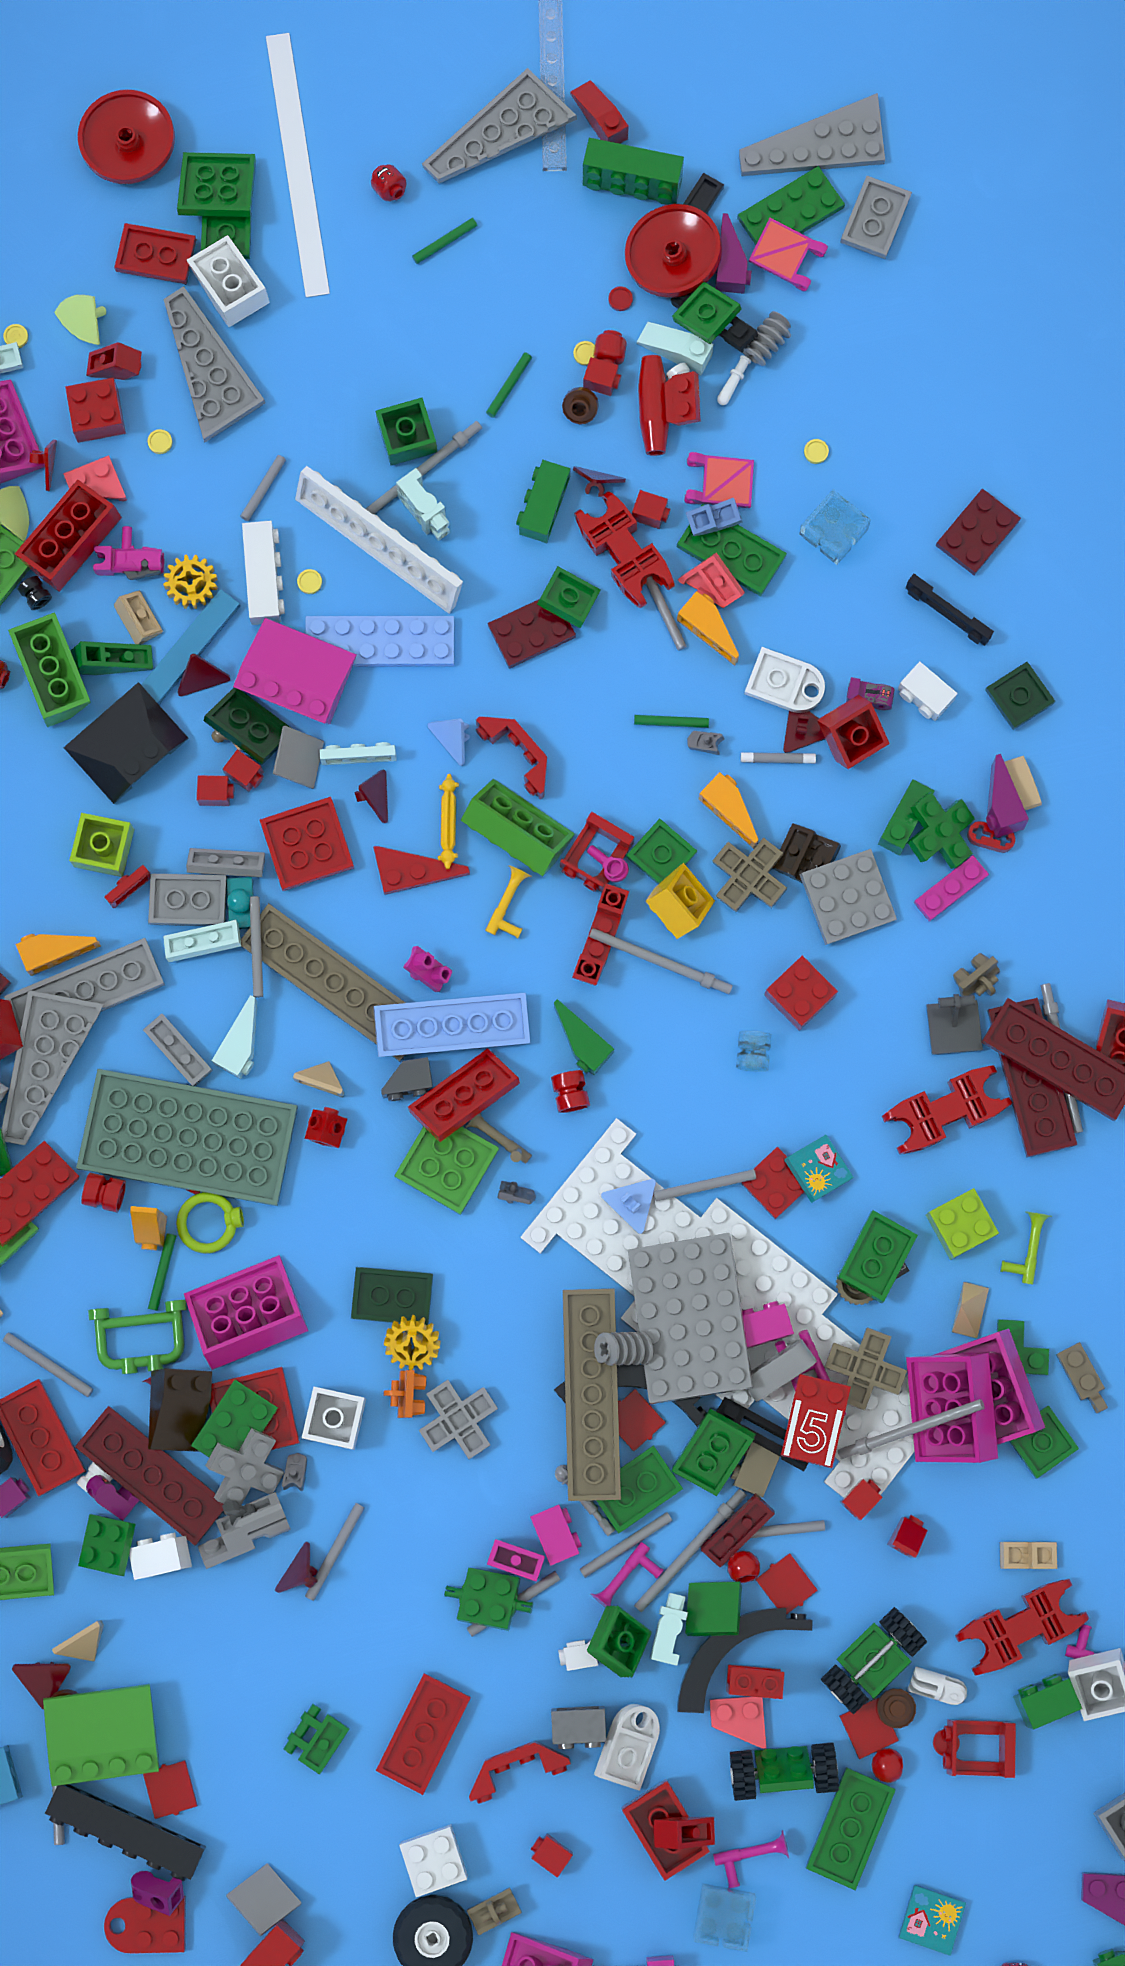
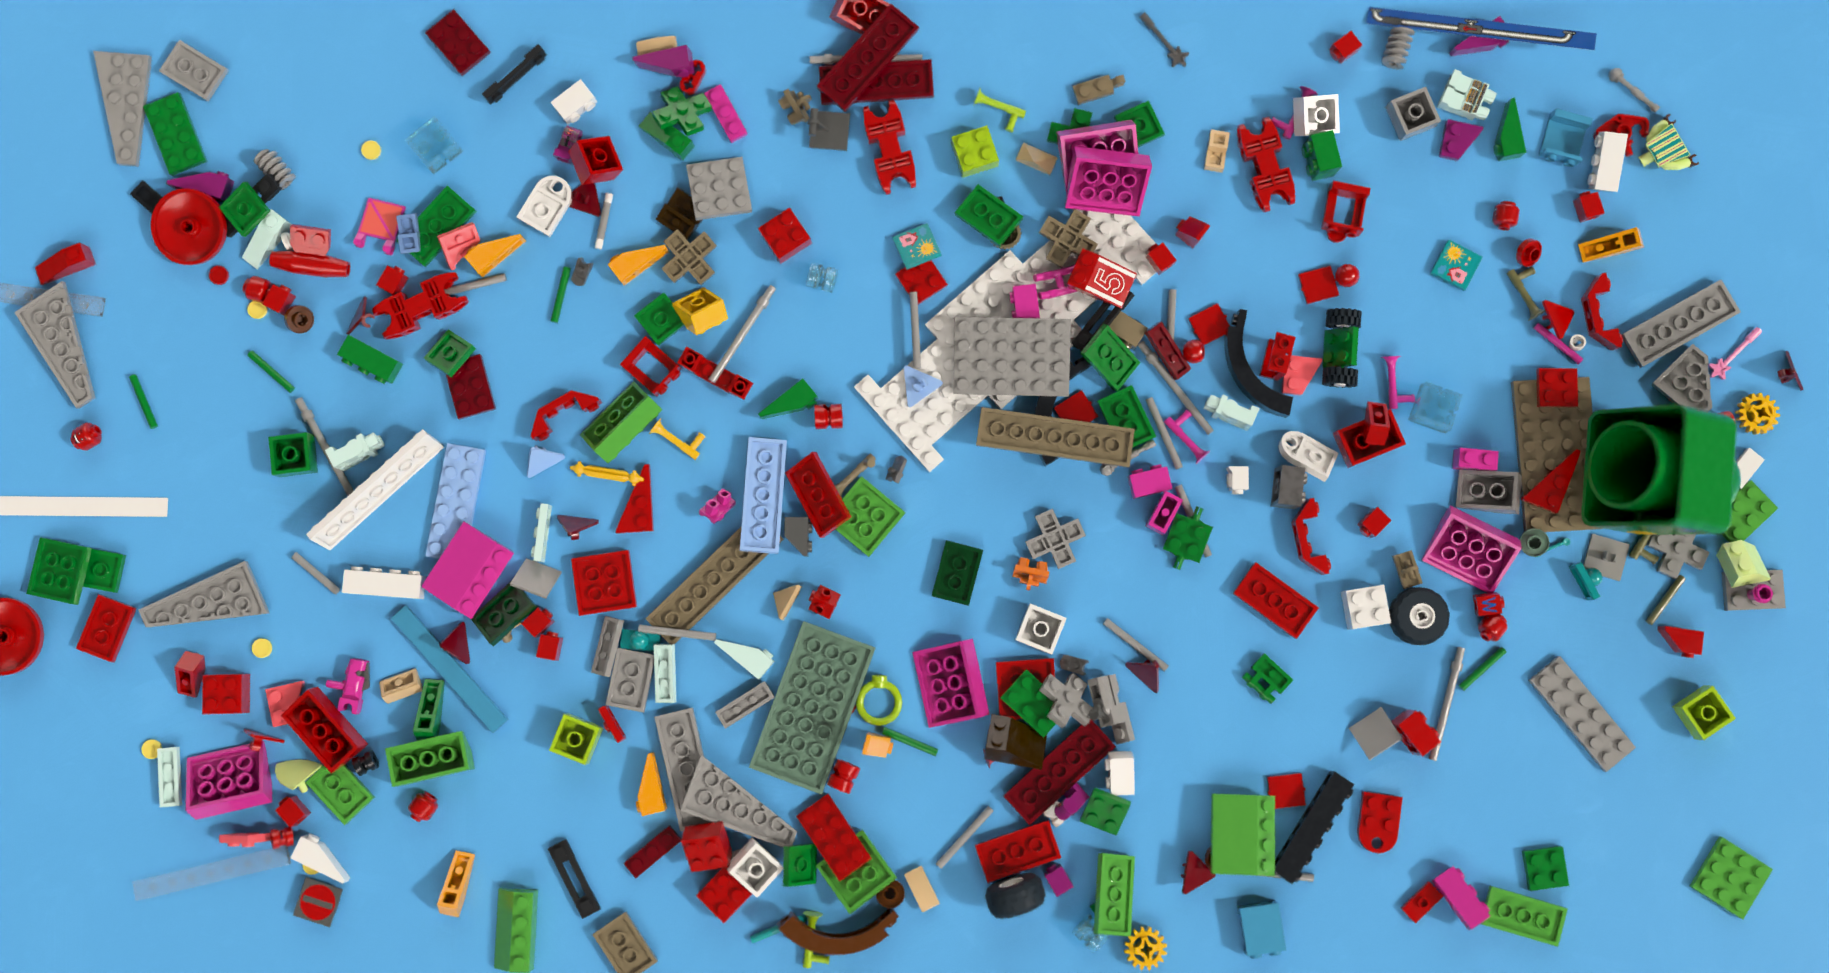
camera: 80 degrees left, 5 degrees up
(80, 317) = (147, 694): yellowish green shield -> none
(83, 1644) = (1174, 841): tan slope -> none
(125, 742) = (499, 709): black slope -> none
(153, 1362) = (976, 757): bright green bar -> none
(157, 1893) = (1359, 811): magenta leg -> none
(200, 580) = (380, 631): yellow gear -> none
(228, 281) = (141, 573): white slope -> none
(309, 581) = (398, 549): light yellow piece -> none
(424, 1342) = (989, 571): yellow gear -> none
(614, 868) = (666, 354): dark pink plate -> none
(619, 1641) = (1233, 448): green brick -> none
(623, 1348) = (1027, 406): light grey piece -> none
(632, 171) = (117, 245): green brick -> none
(713, 1609) = (1220, 377): green tile -> none
(736, 375) = (298, 198): white piece -> none
(780, 1369) = (1059, 297): light grey beam -> none
(782, 252) = (207, 145): flag -> none
(850, 1828) = (1387, 309): green plate -> none
(866, 1445) = (1123, 248): light grey bar -> none
(874, 1660) = (1274, 271): plate -> none
(896, 1708) = (1308, 262): reddish brown plate -> none
(937, 1686) = (1298, 231): white arm -> none
(1020, 695) = (590, 35): dark green plate -> none

